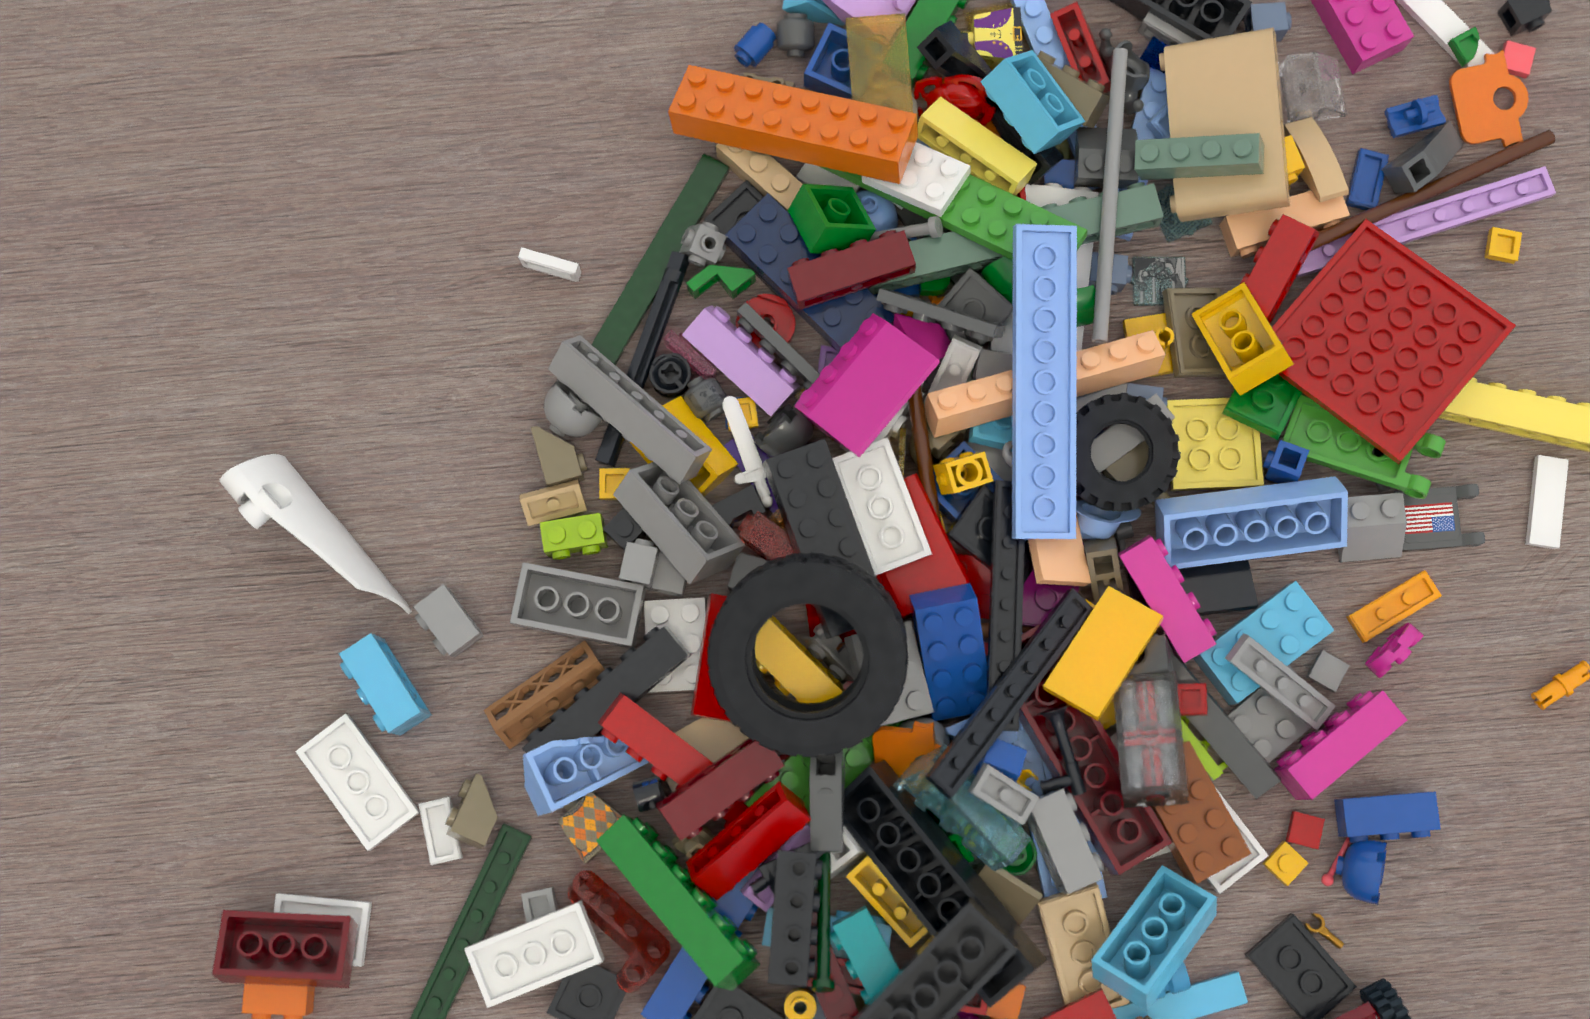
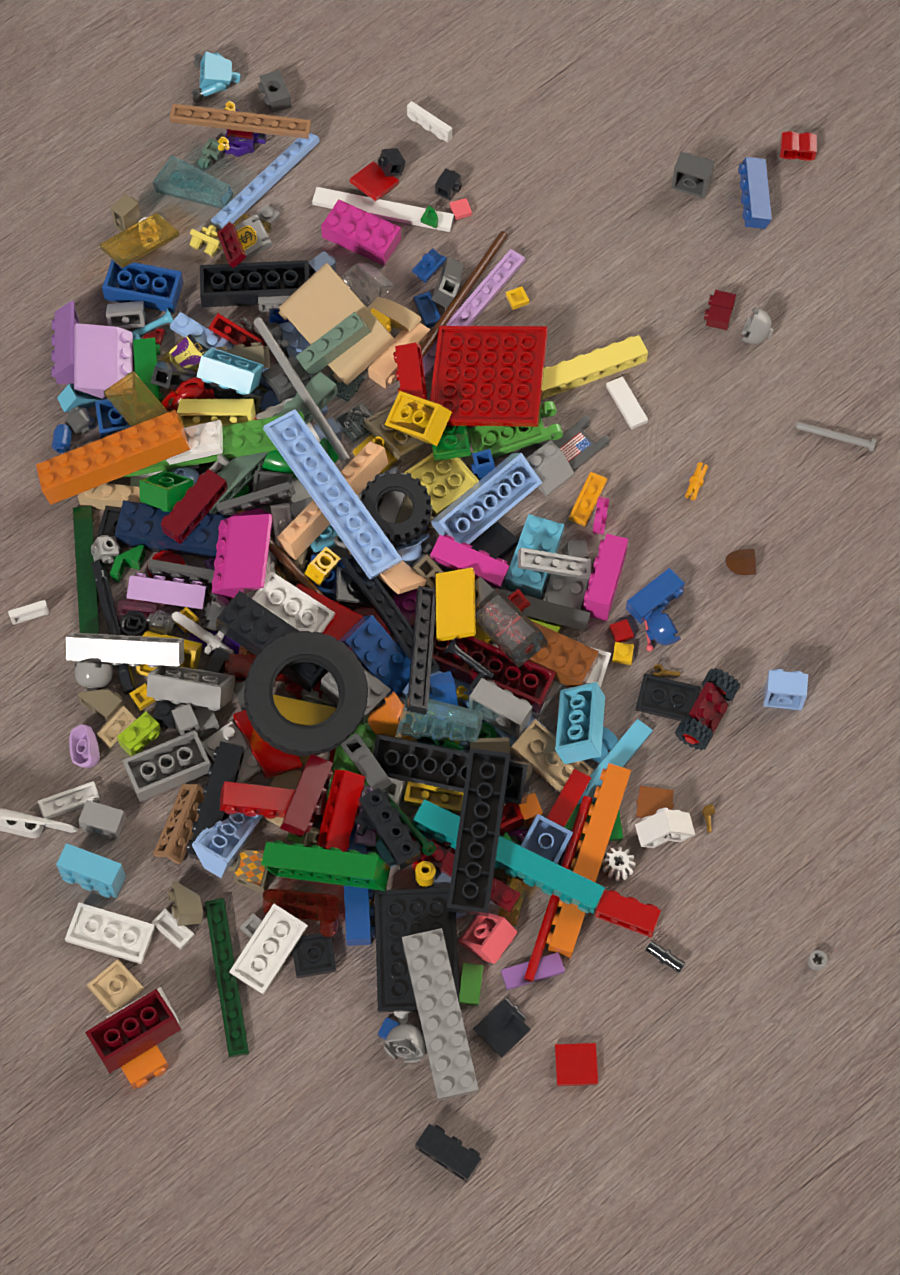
camera: 35 degrees left, 15 degrees down
(317, 858) = (115, 986): none -> tan tile
(429, 561) = (68, 800): none -> white tile
(493, 503) = (84, 747): none -> lavender piece
(648, 793) = (271, 831): black leg -> none
(1003, 794) = (452, 696): light grey plate -> none
(1474, 106) = (457, 244): orange piece -> none
(1544, 847) = (742, 562): none -> reddish brown brick

